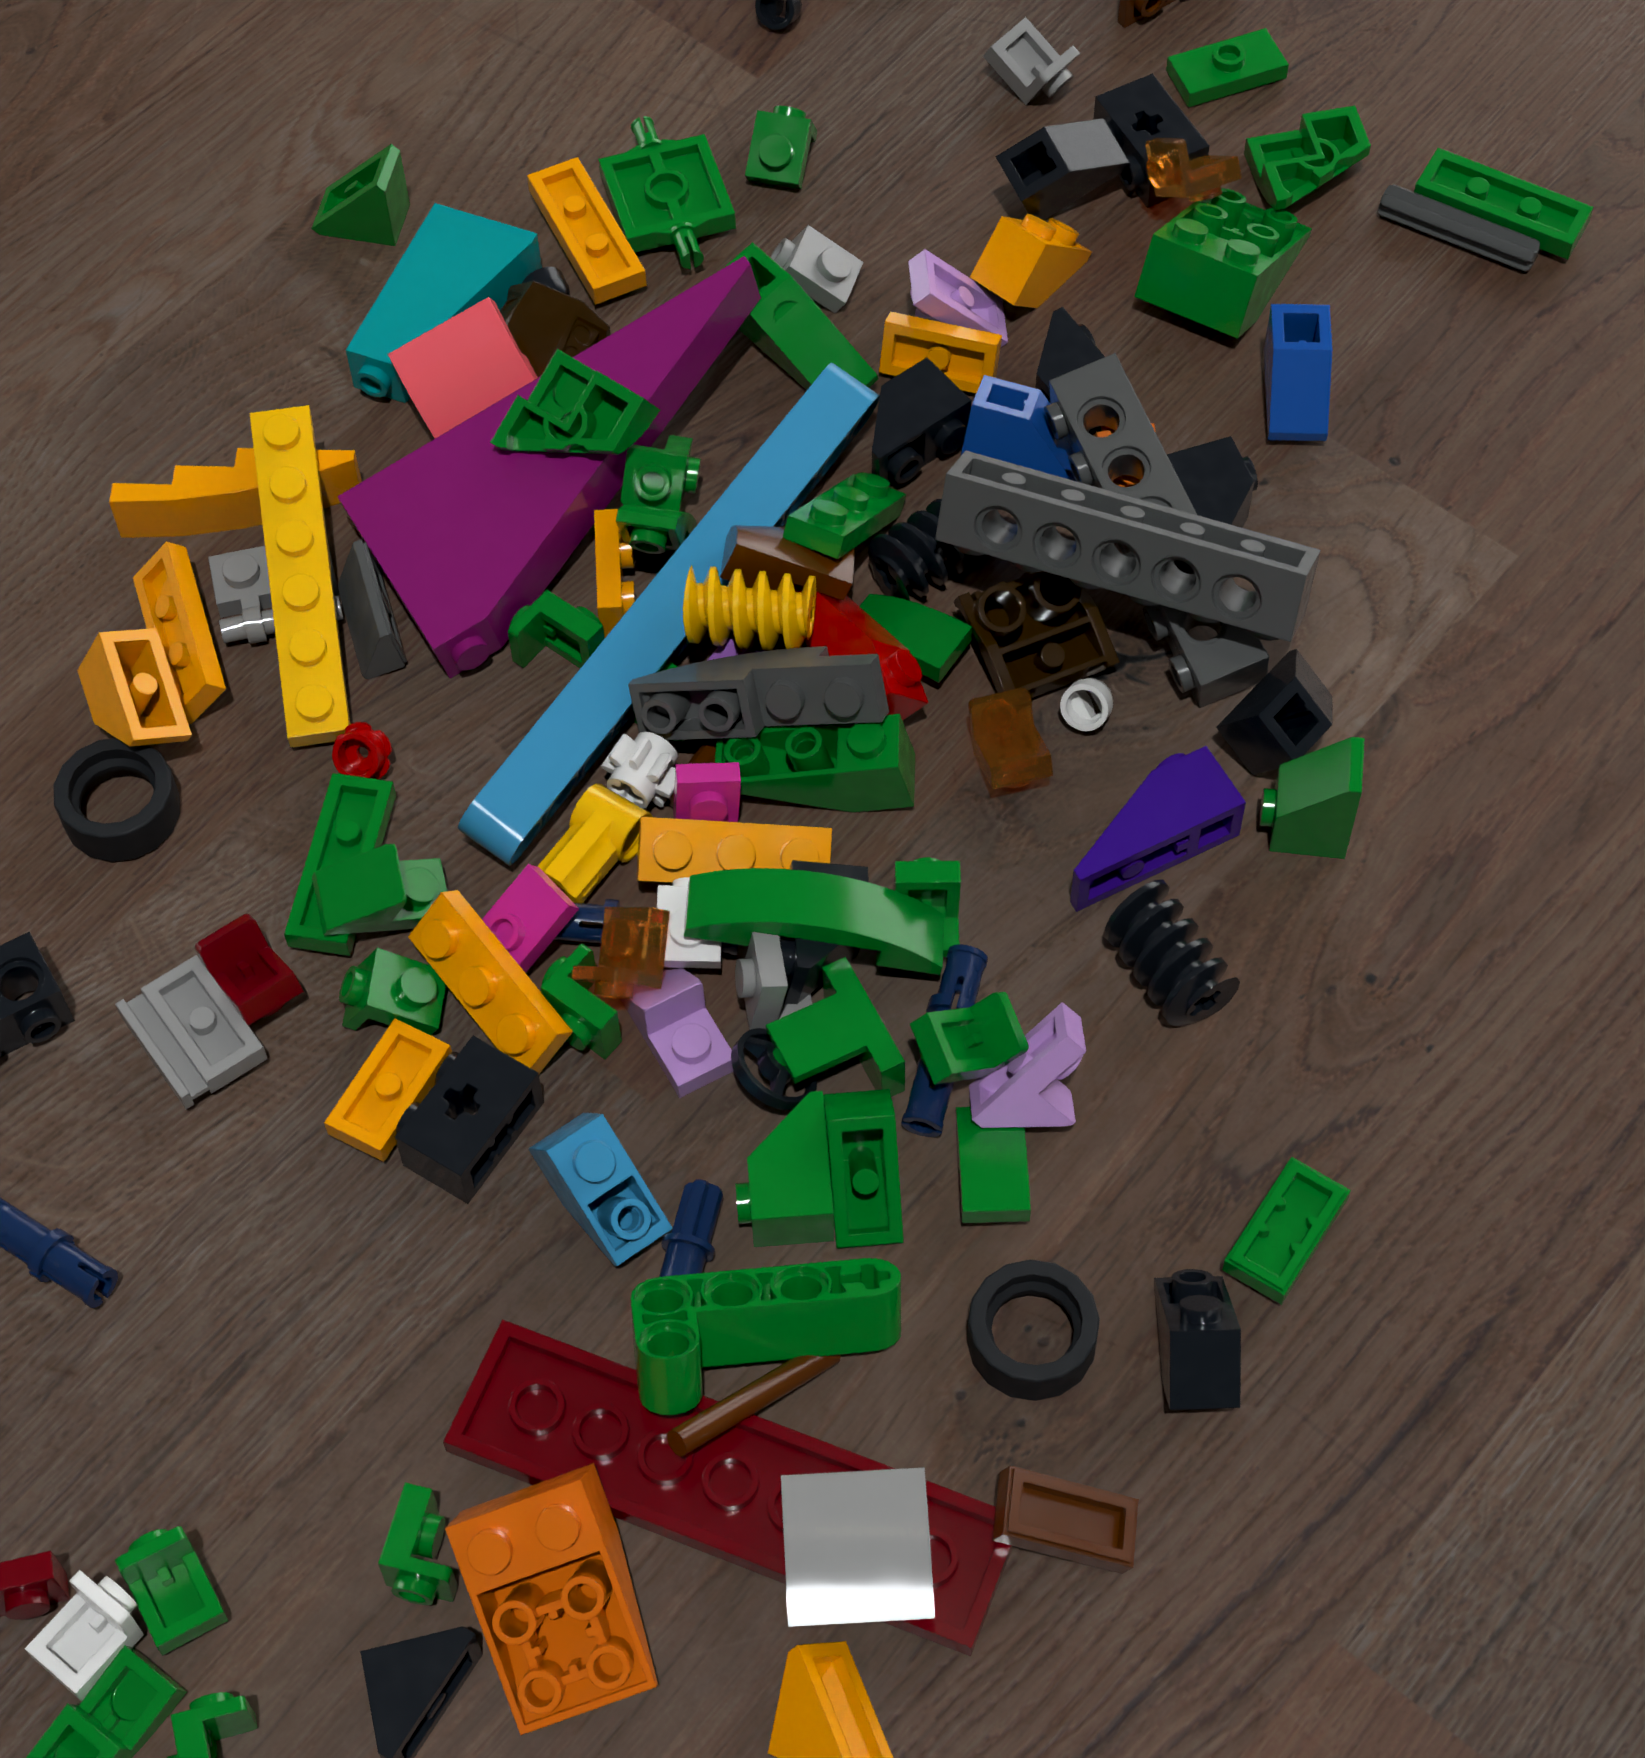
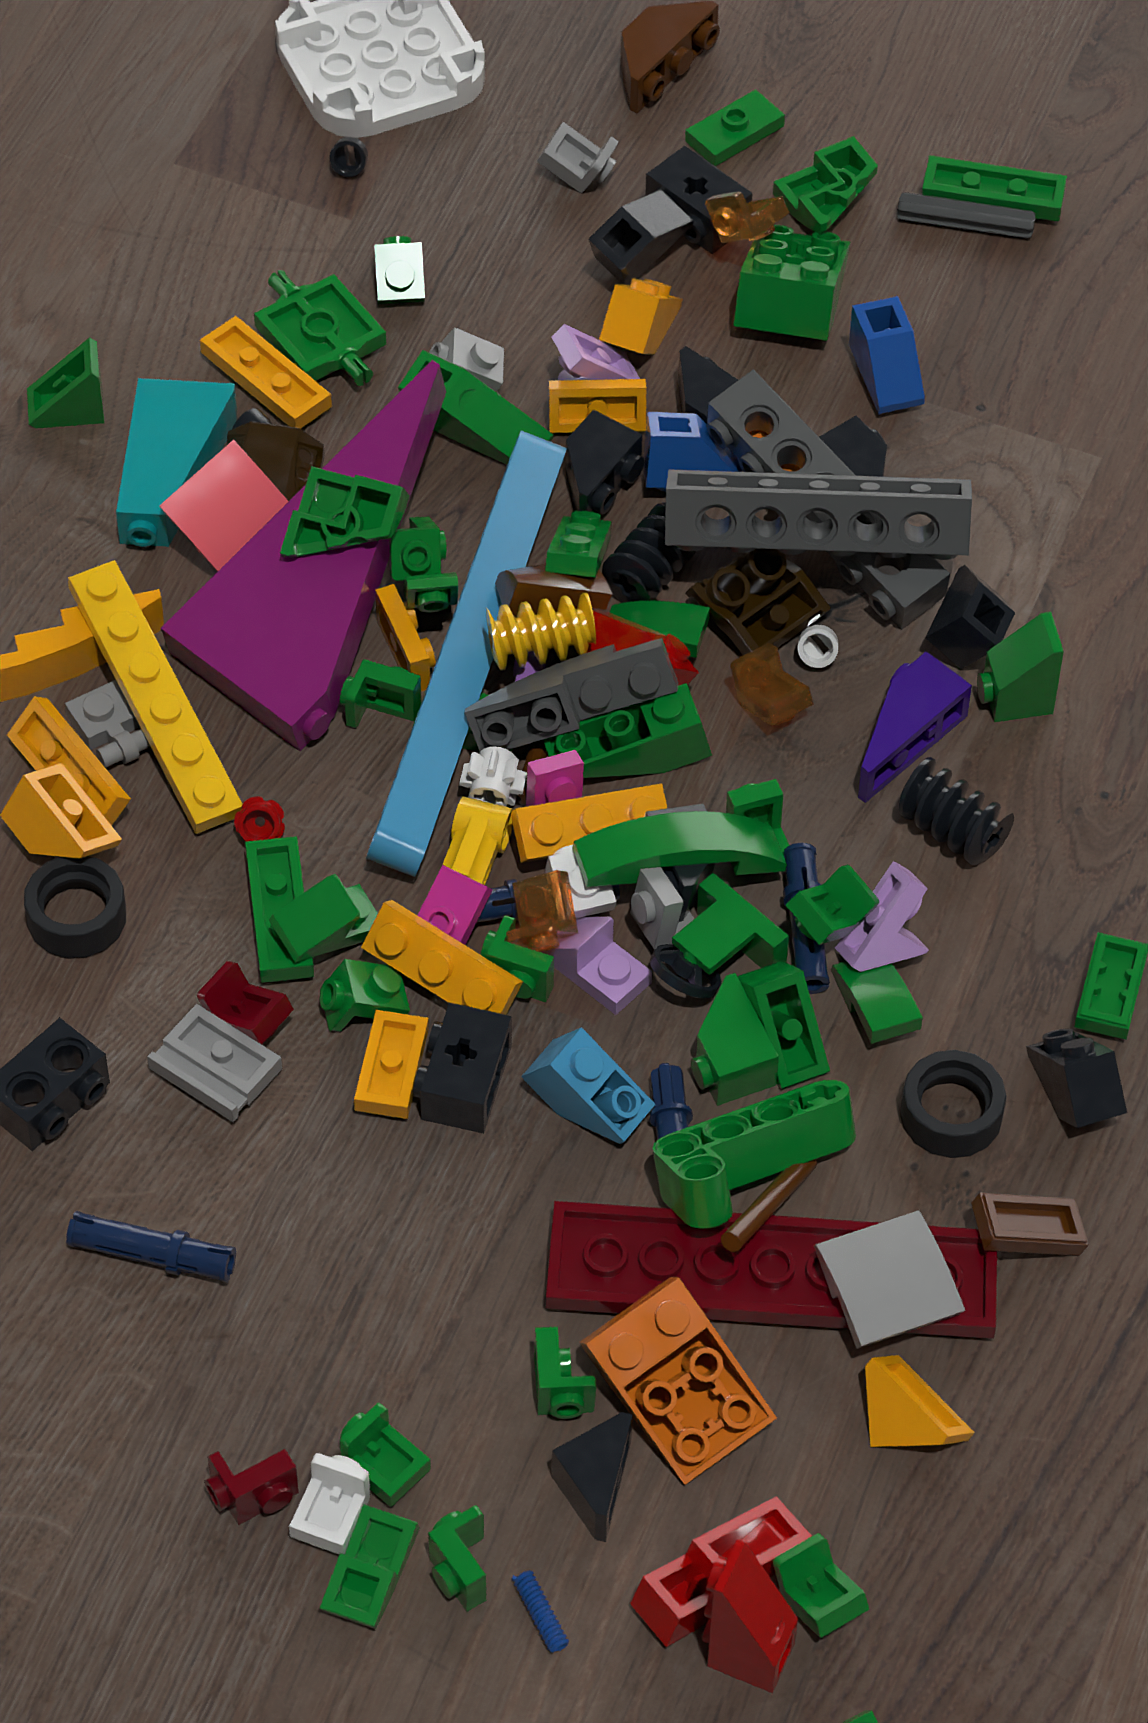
camera: 20 degrees left, 5 degrees down
(369, 614) = (220, 715): dark grey slope -> none

